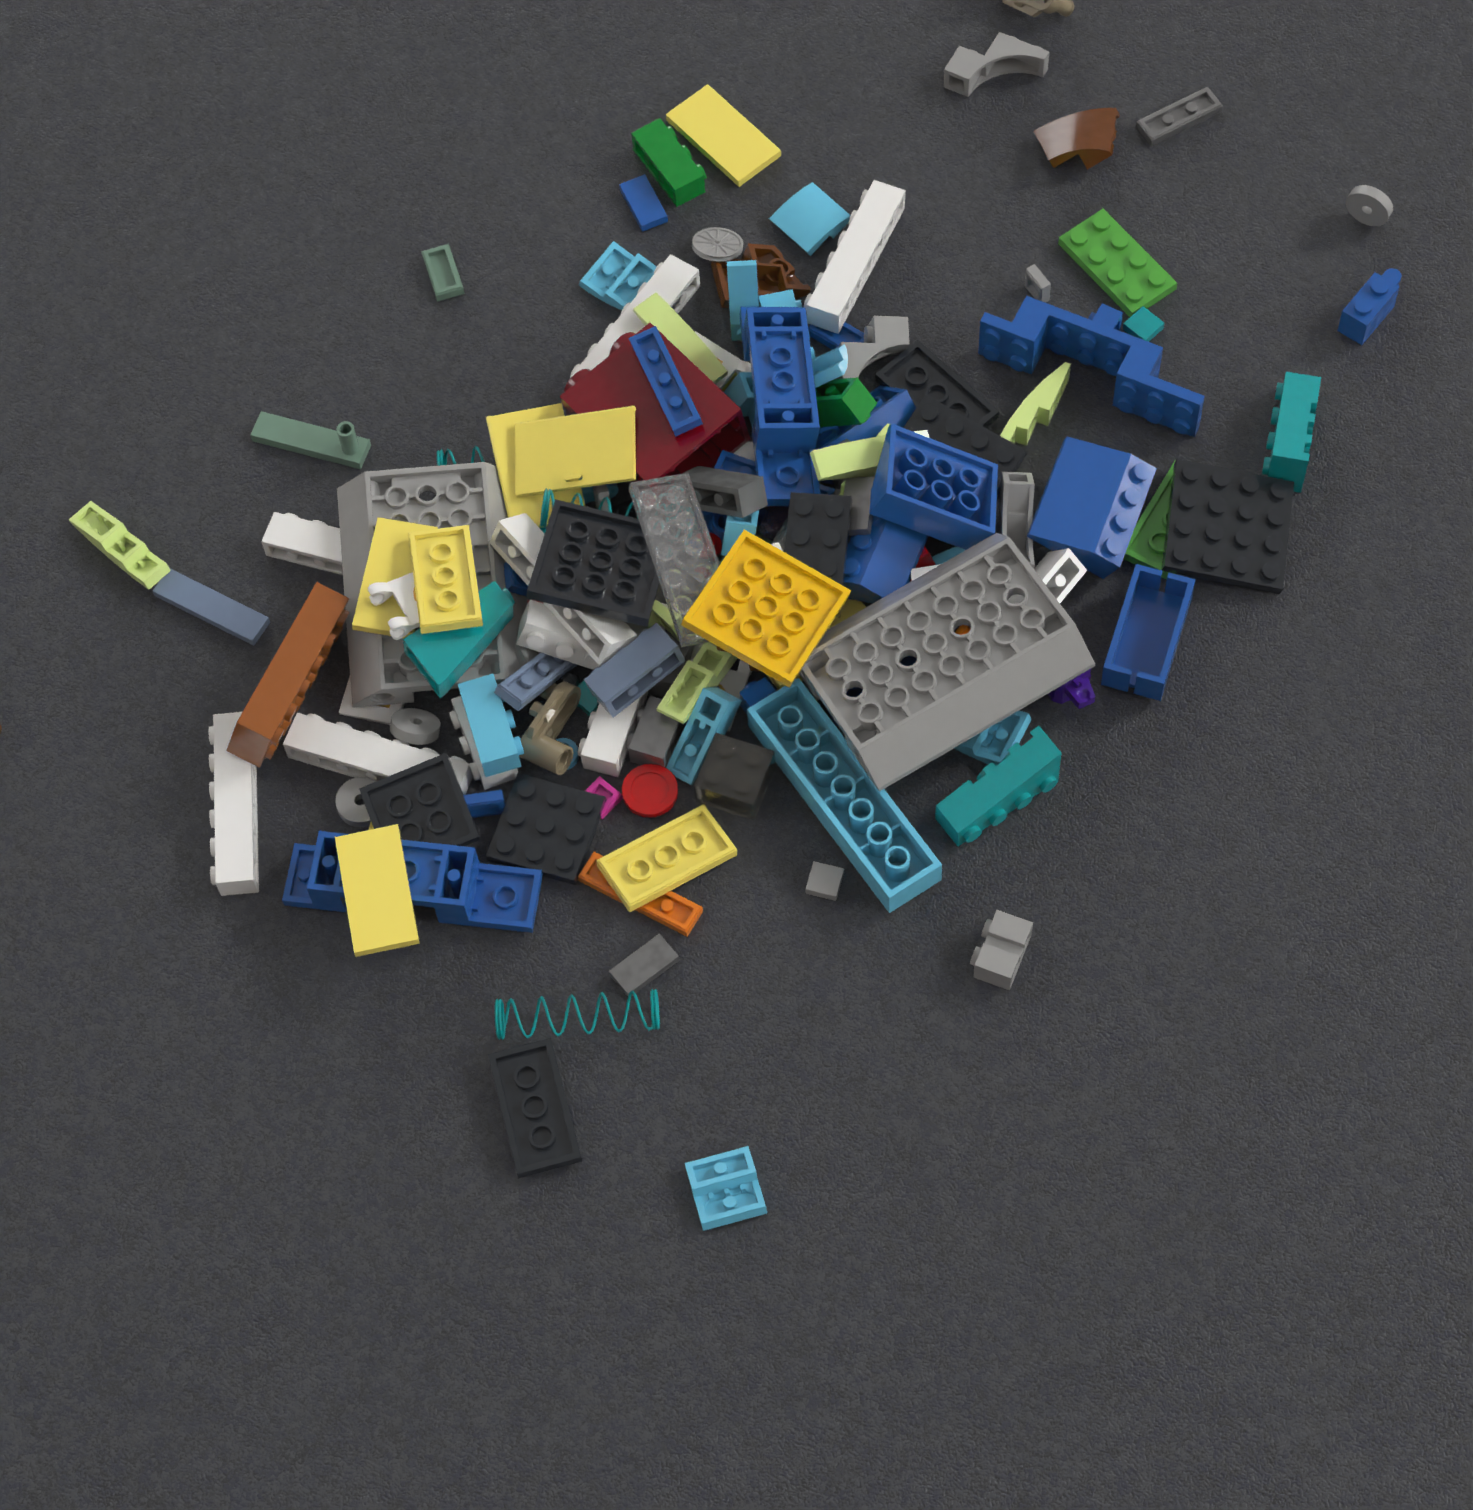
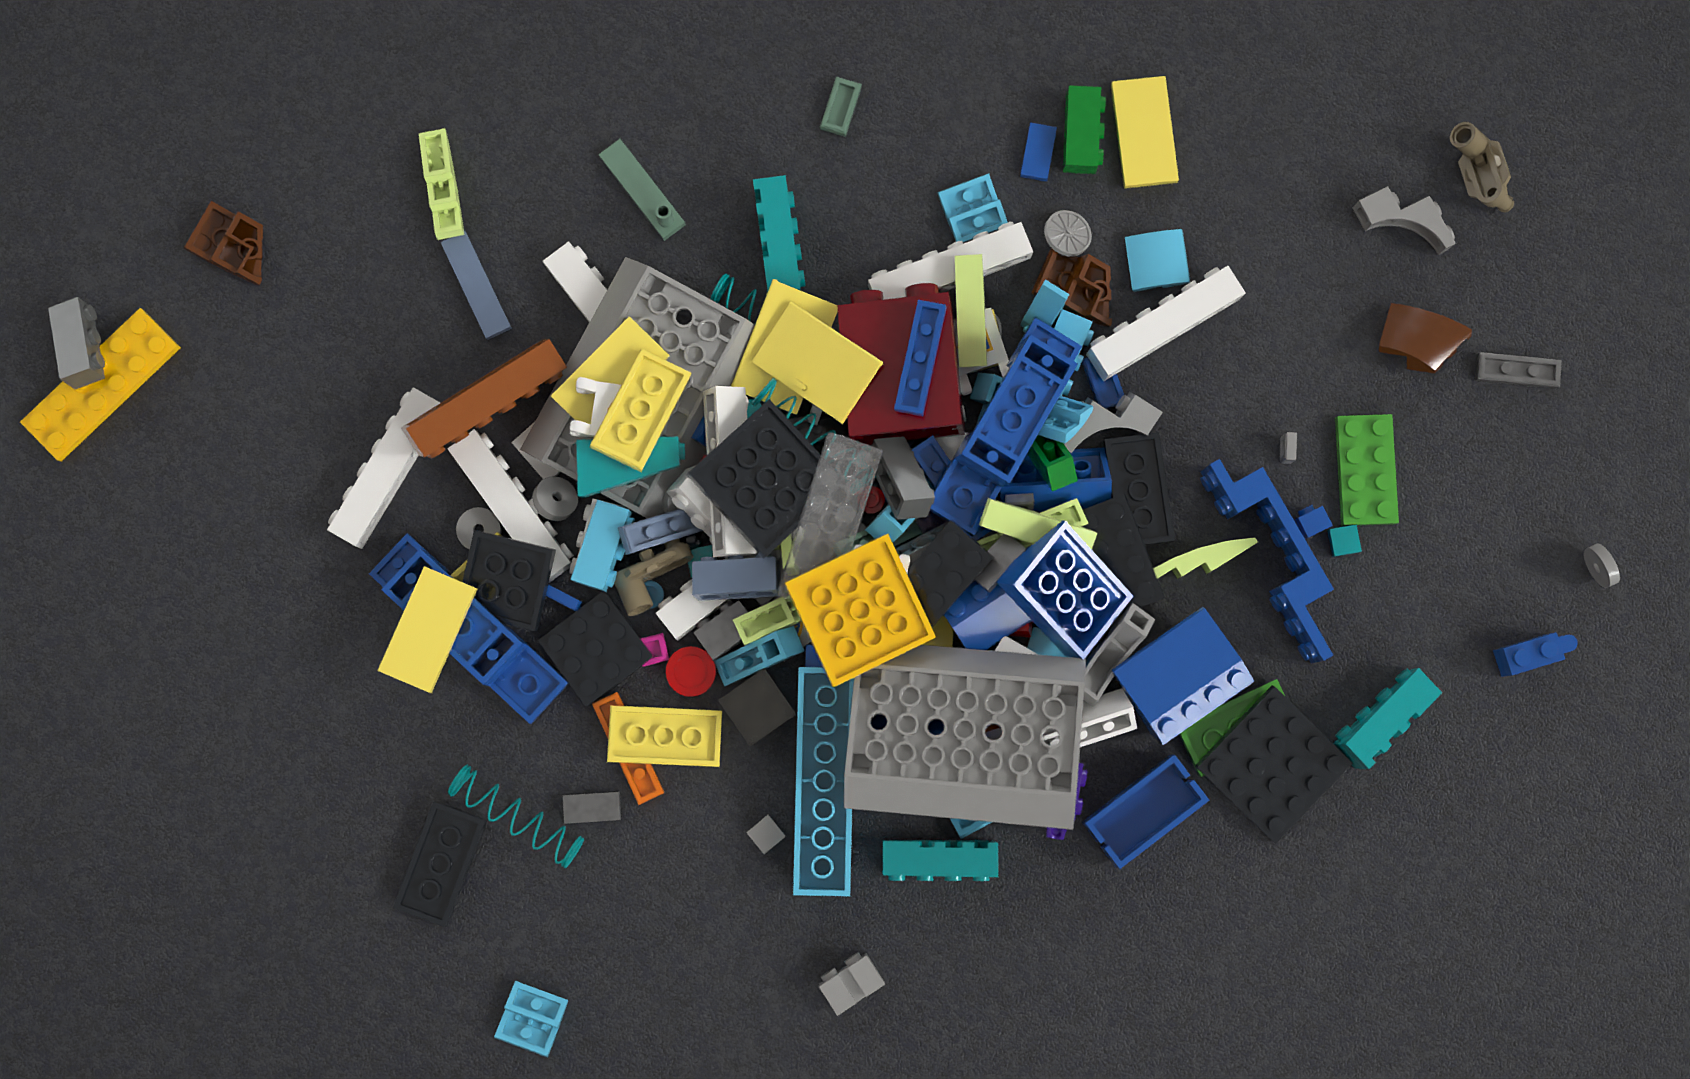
camera: 30 degrees right, 20 degrees up
(455, 388) = (777, 231): none -> teal wedge

